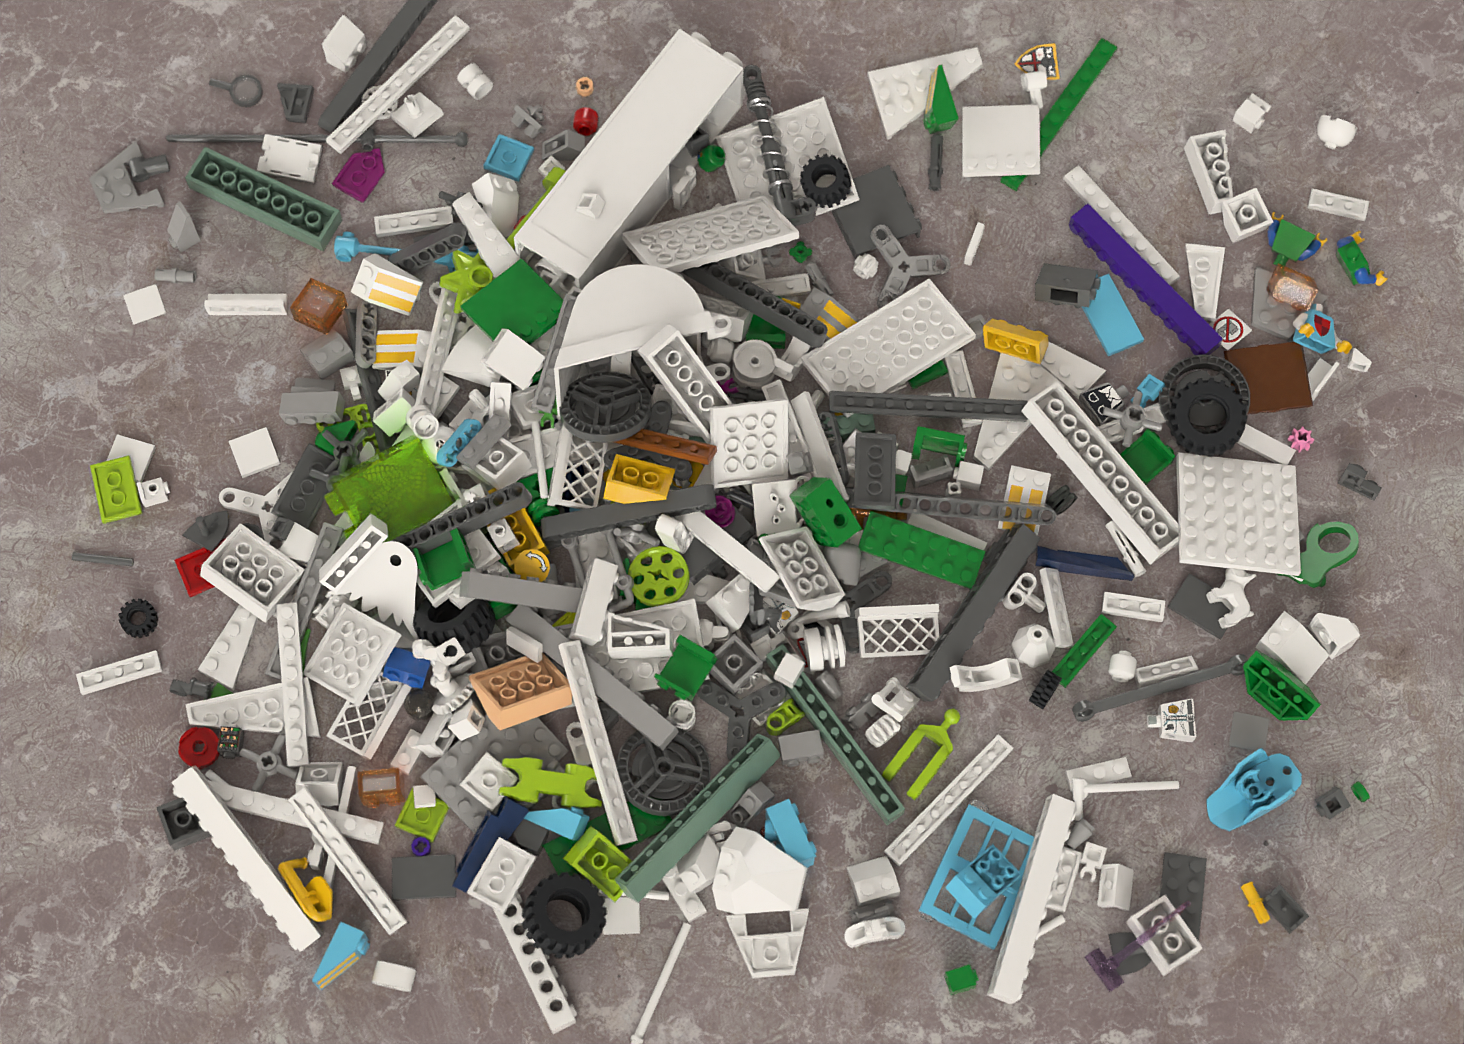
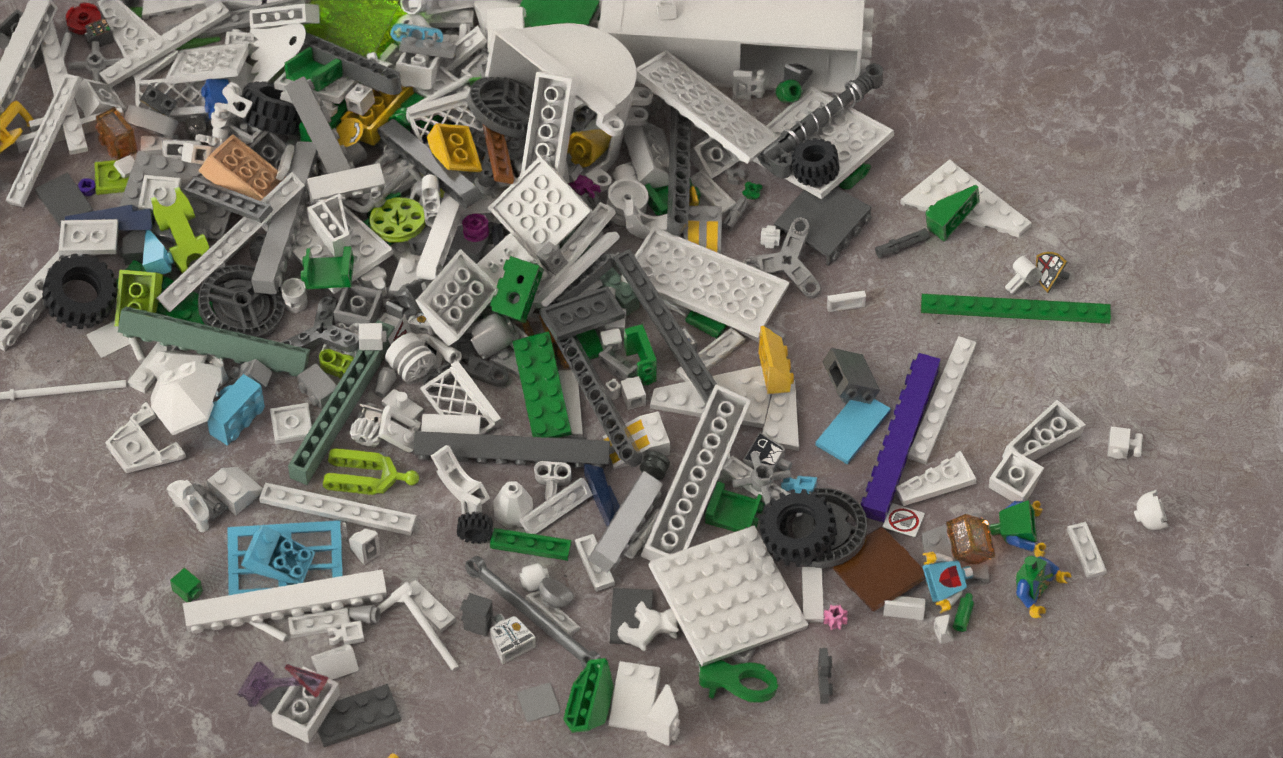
camera: 60 degrees right, 15 degrees down
(374, 725) = (158, 100): none -> dark grey hips
(390, 746) = (151, 122): none -> light grey beam
(552, 719) = (228, 199): none -> dark grey plate
(824, 793) = (291, 422): none -> white tile
(863, 683) = (402, 404): none -> white tile
(916, 651) = (451, 423): none -> white tile
(1000, 140) = (955, 276): white plate -> none
(1007, 795) = (365, 545): none -> white slope
(1024, 681) = (470, 503): none -> white tile
(1116, 557) = (625, 521): none -> light grey brick
(1142, 736) = (477, 614): none -> dark grey brick
(1152, 656) = (555, 593): none -> light grey piece
(1246, 794) = (483, 718): medium azure piece -> none
(1347, 333) = (963, 613): none -> green cylinder

